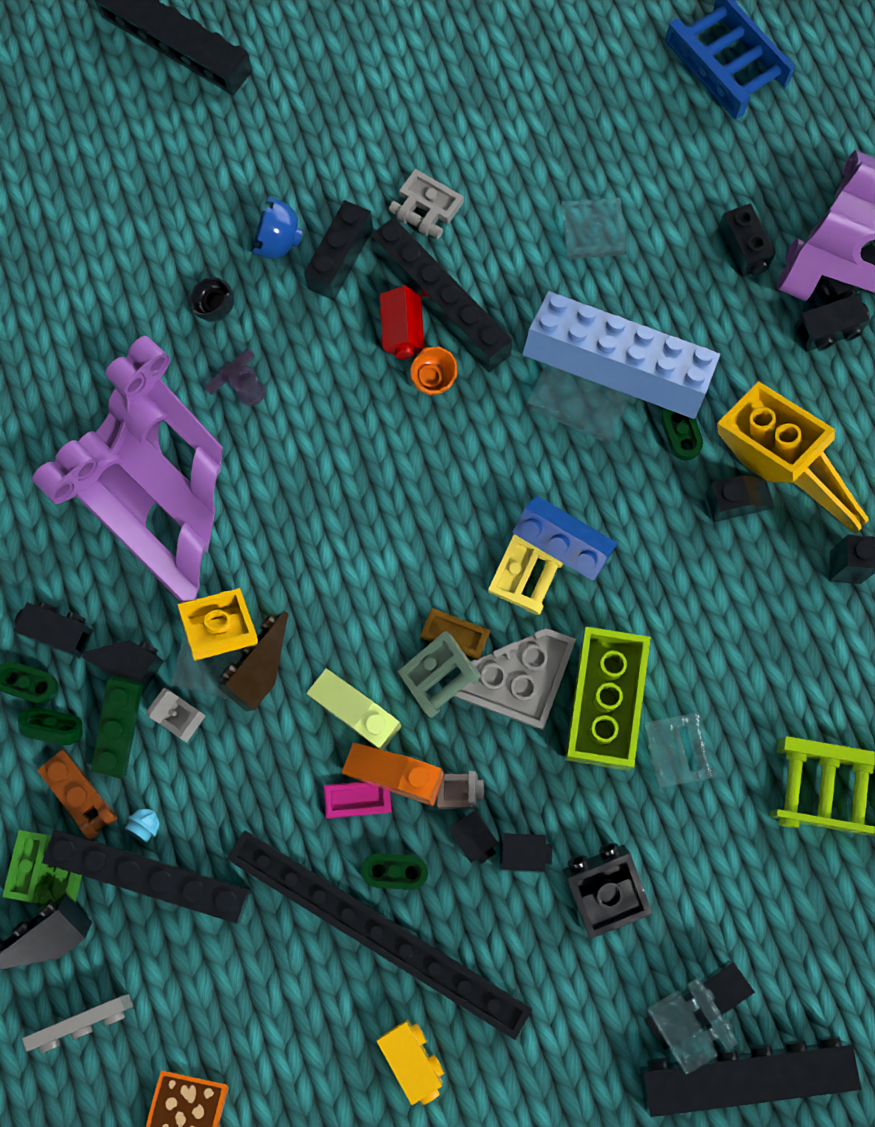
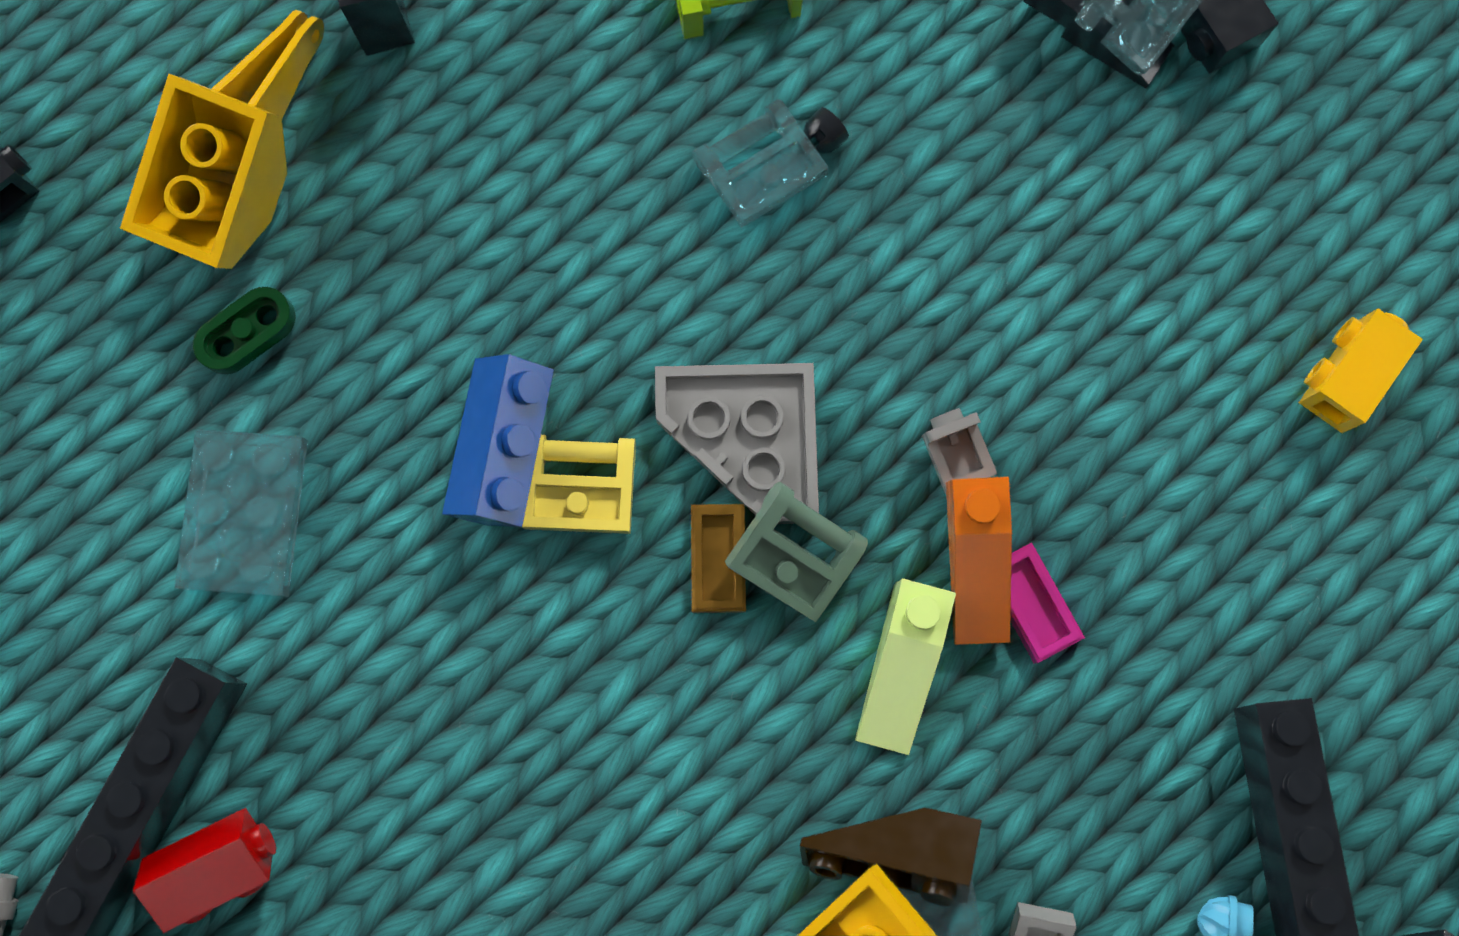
camera: 120 degrees left, 5 degrees up
(380, 935) = (1210, 499): black plate -> none
(395, 871) = (1119, 499): dark green plate -> none
(433, 370) = (279, 774): orange hair -> none
(474, 838) = (1017, 403): black brick -> none
(525, 853) = (1022, 308): black brick -> none
(606, 889) = (1003, 191): black plate -> none
(607, 699) = (731, 283): lime brick -> none
(621, 354) = (142, 468): medium blue brick -> none
(685, 798) = (826, 130): none -> black hinge
(738, 497) = (331, 209): black slope -> none

